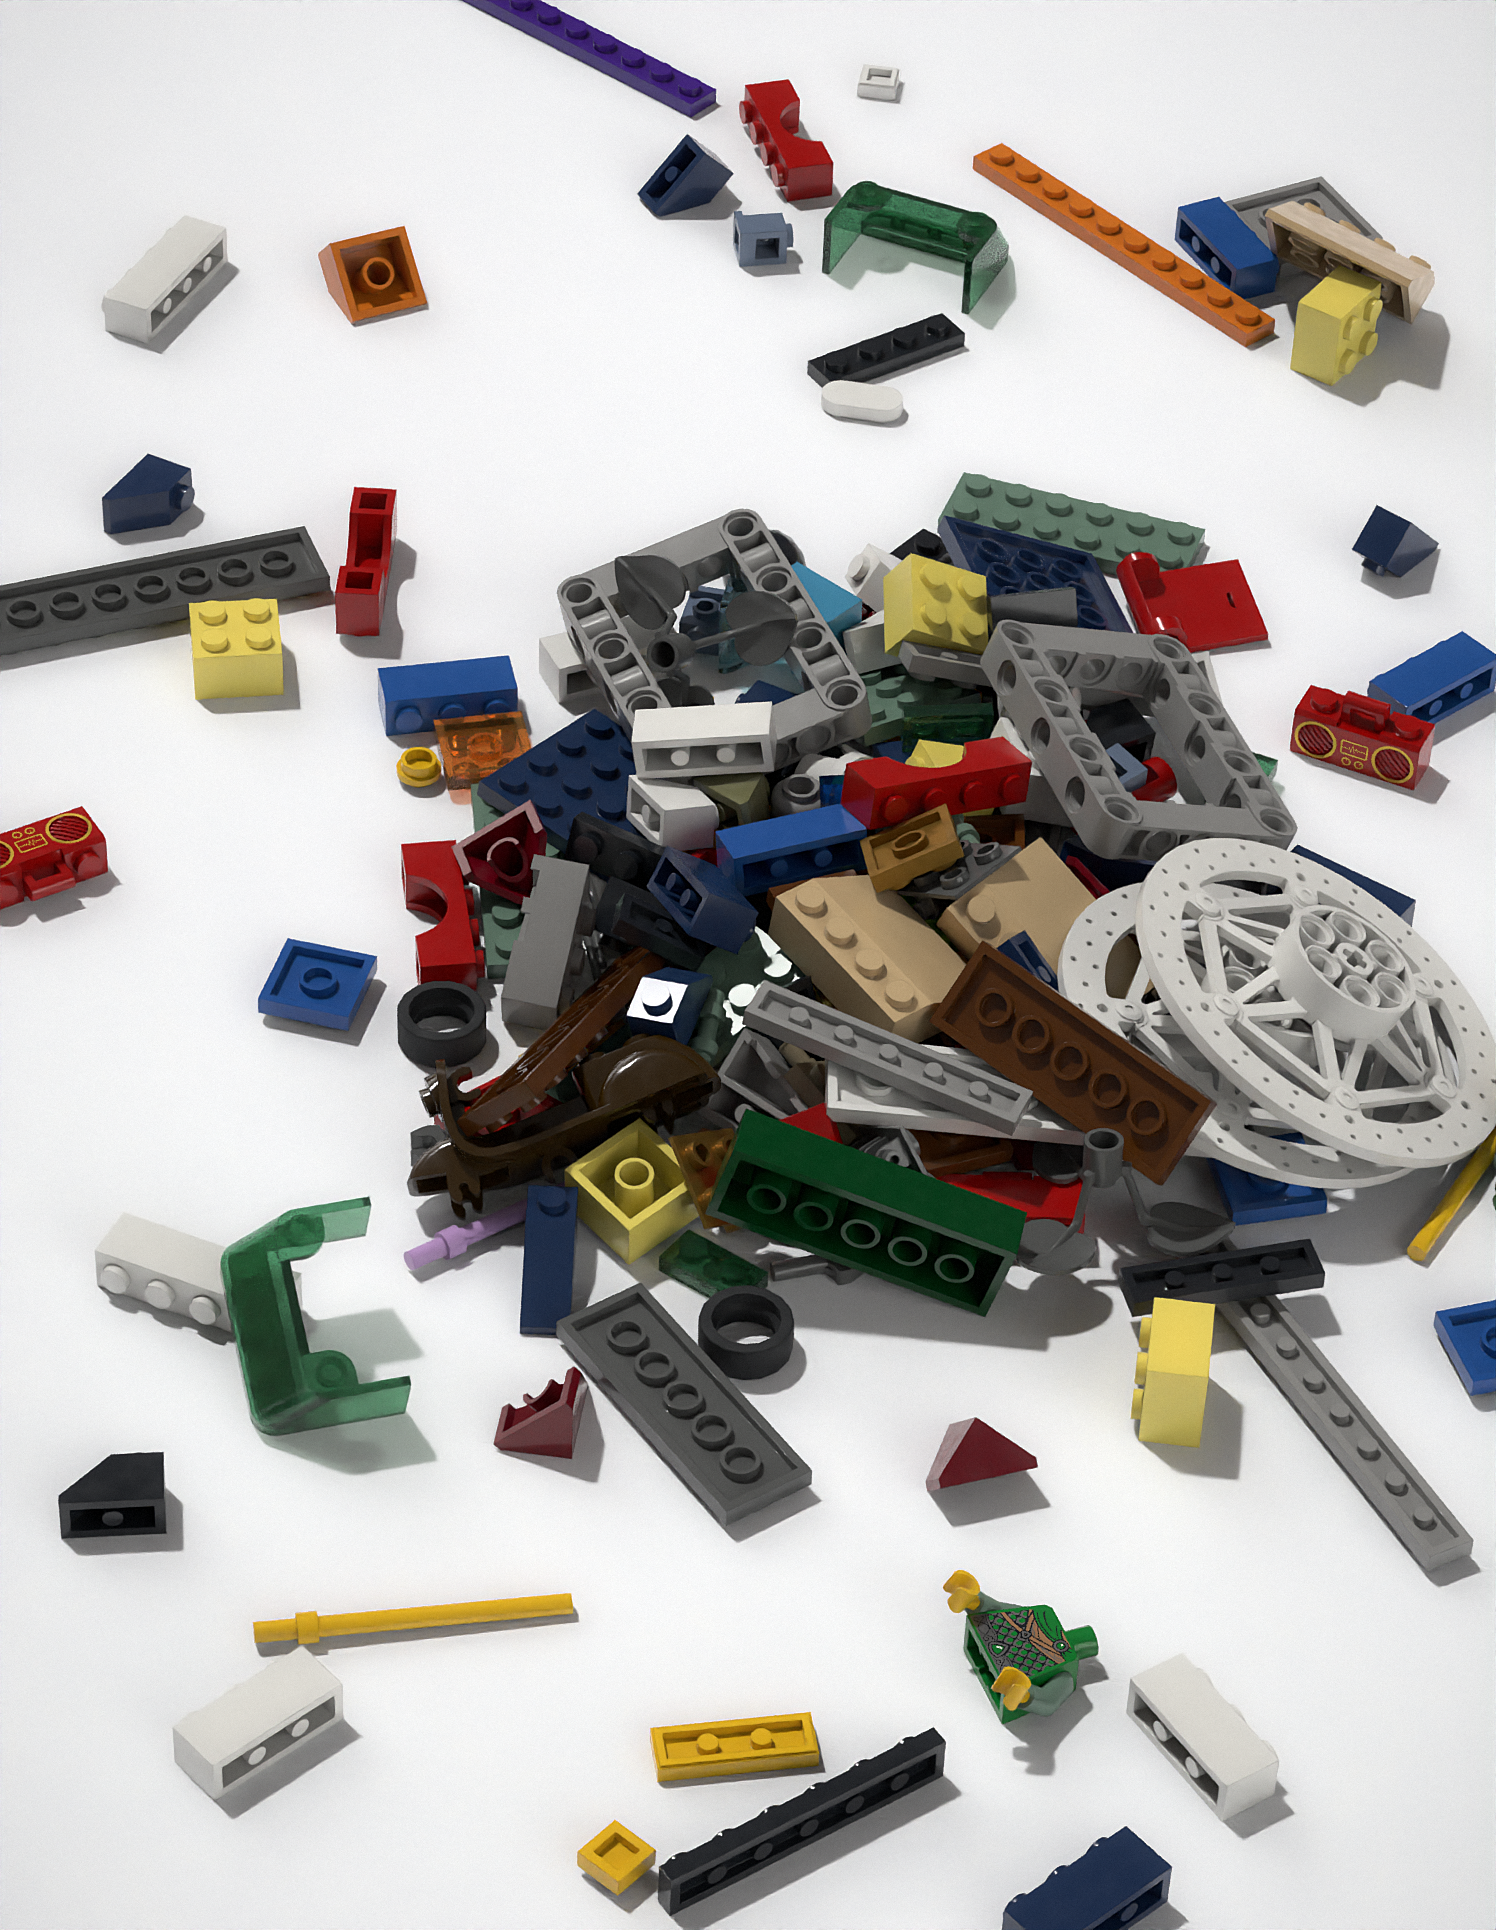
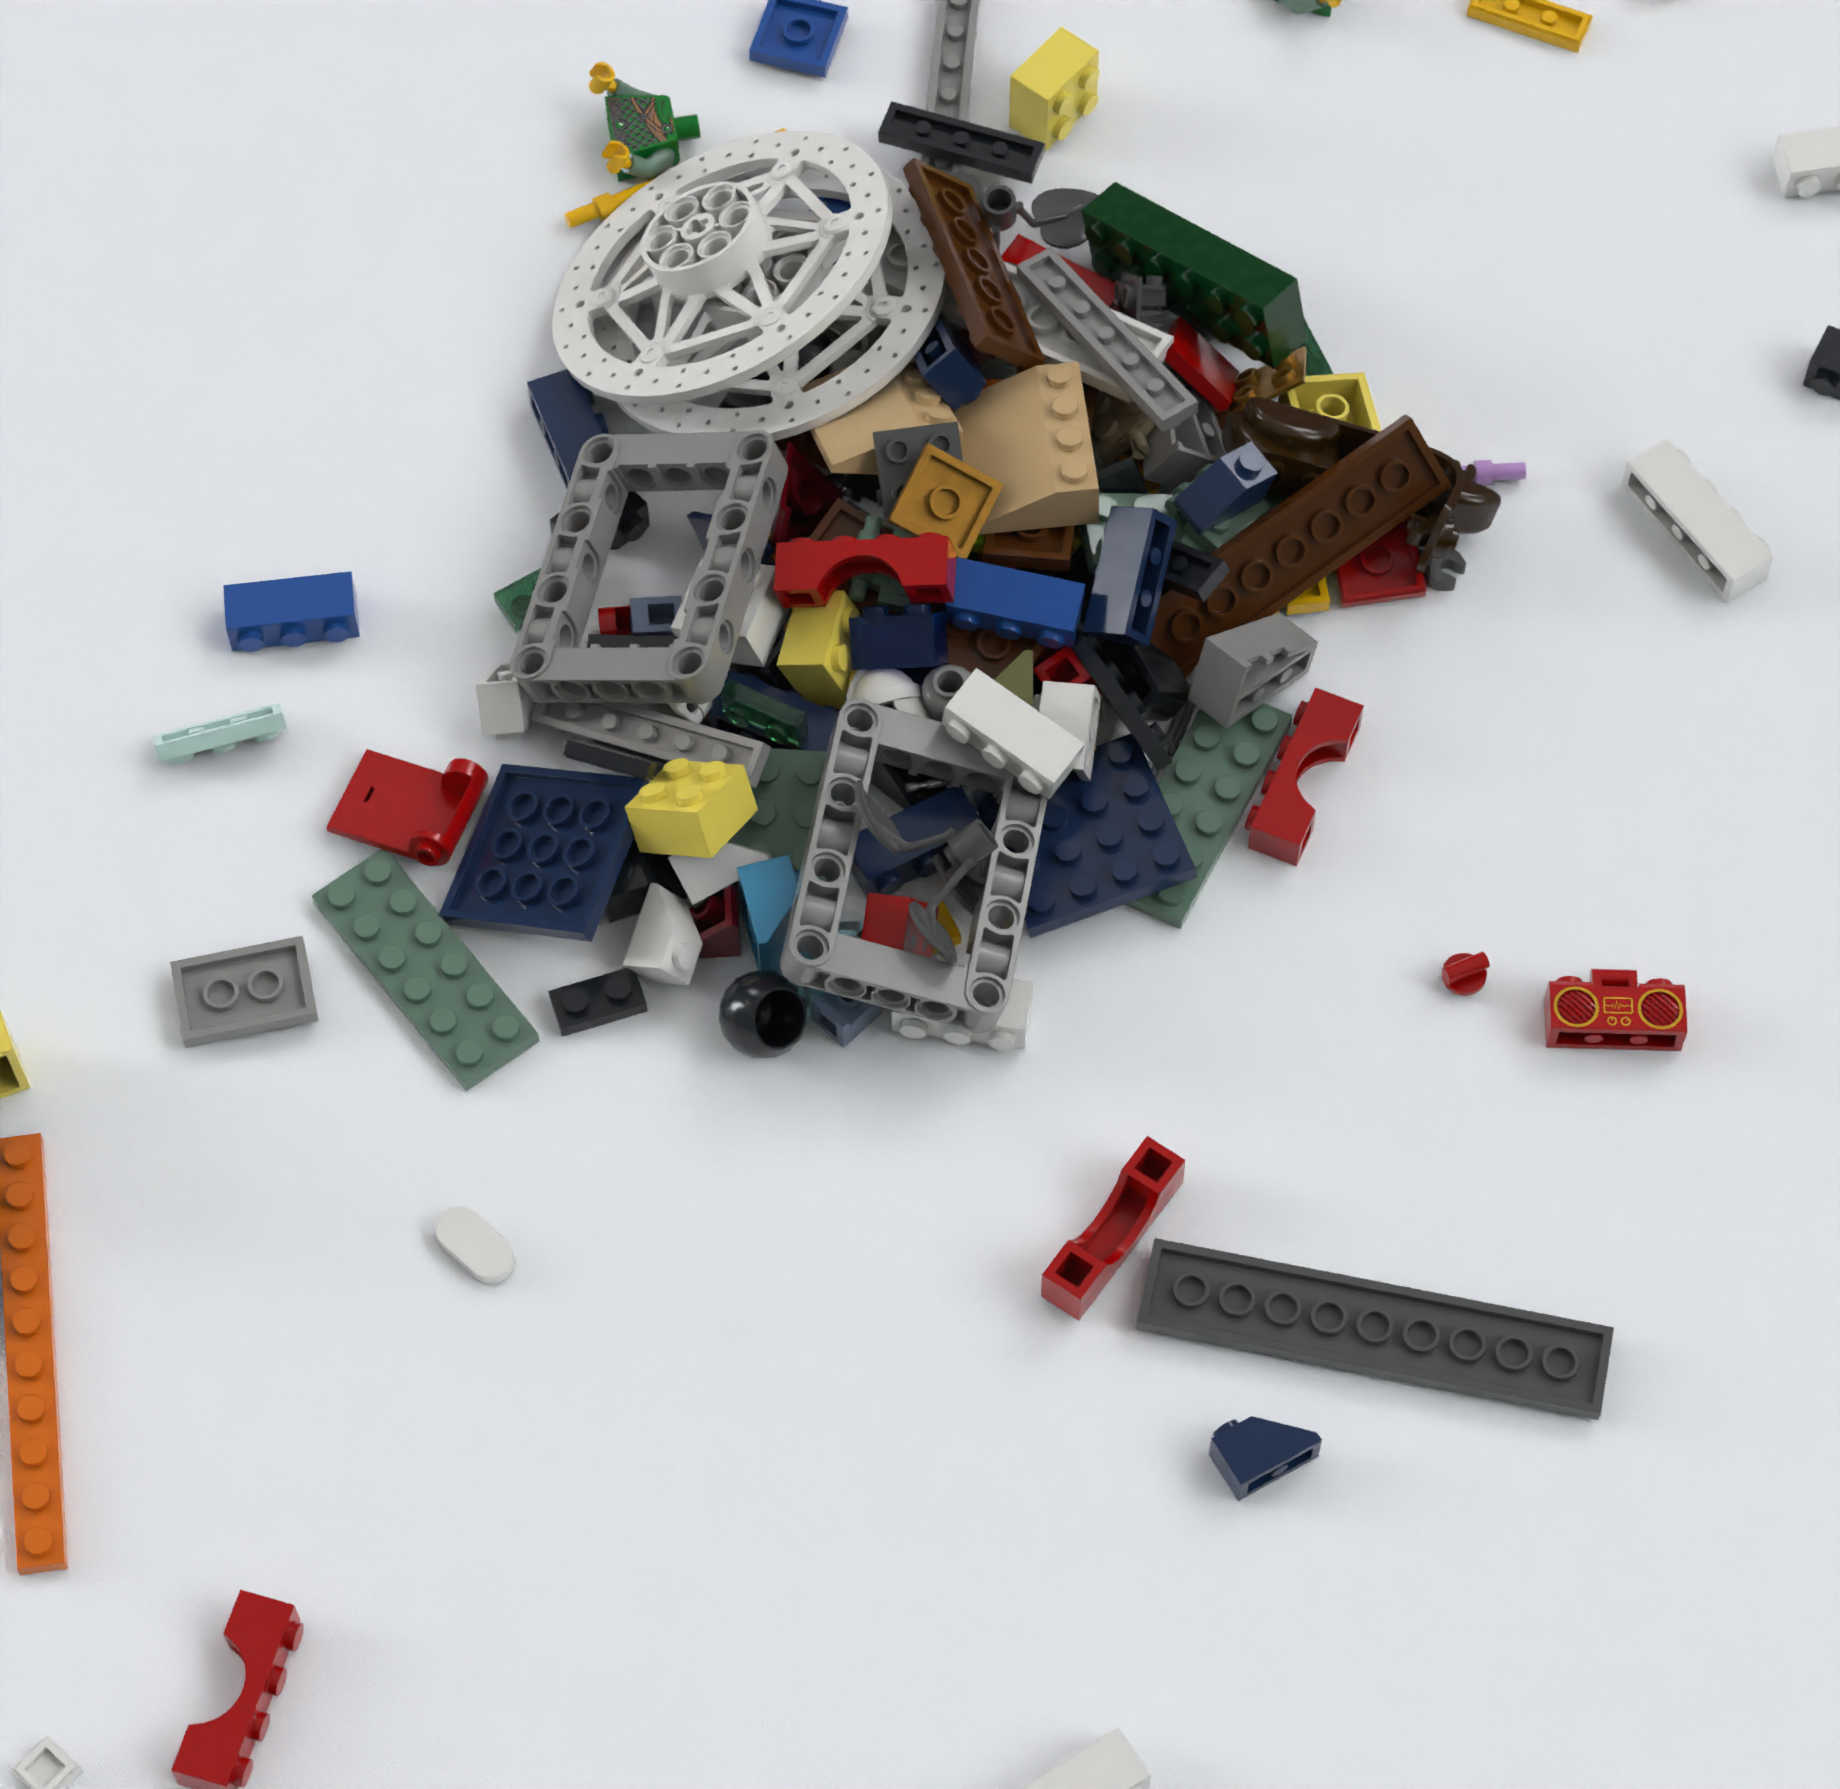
camera: 145 degrees left, 20 degrees up
(193, 845) = (1465, 973): none -> red plate
(236, 648) = (1297, 1183): light yellow brick -> none
(281, 1379) = (1654, 423): clear green windscreen -> none
(309, 1626) = (1763, 219): yellow bar -> none
(317, 984) = (1443, 763): blue plate -> none
(372, 274) = (832, 1696): orange slope -> none
(418, 767) = (1212, 967): yellow plate -> none
(441, 999) = (1375, 644): black tyre -> none
(444, 690) = (1138, 1030): blue brick -> none
(478, 746) = (1145, 954): clear orange plate -> none
(503, 853) = (1226, 777): dark red slope -> none
(547, 1422) = (1503, 291): dark red slope -> none
(548, 1258) = (1431, 401): dark blue slope -> none
(684, 1404) = (1401, 259): dark grey plate -> none
(685, 179) = (397, 1679): dark blue slope -> none
(698, 618) = (891, 925): none -> red brick
(750, 1305) = (1332, 265): black tyre -> none
(761, 239) = (392, 1535): sand blue brick -> none
(888, 351) = (396, 1304): black plate -> none
(918, 225) = (236, 1494): clear green windscreen -> none
(975, 1453) = (1230, 119): dark red slope -> none
(1190, 458) = (244, 991): none -> light grey plate
(1362, 736) = (404, 581): red piece -> none
(1392, 544) = (168, 782): dark blue slope -> none
(1394, 590) = (219, 734): none -> light aqua plate

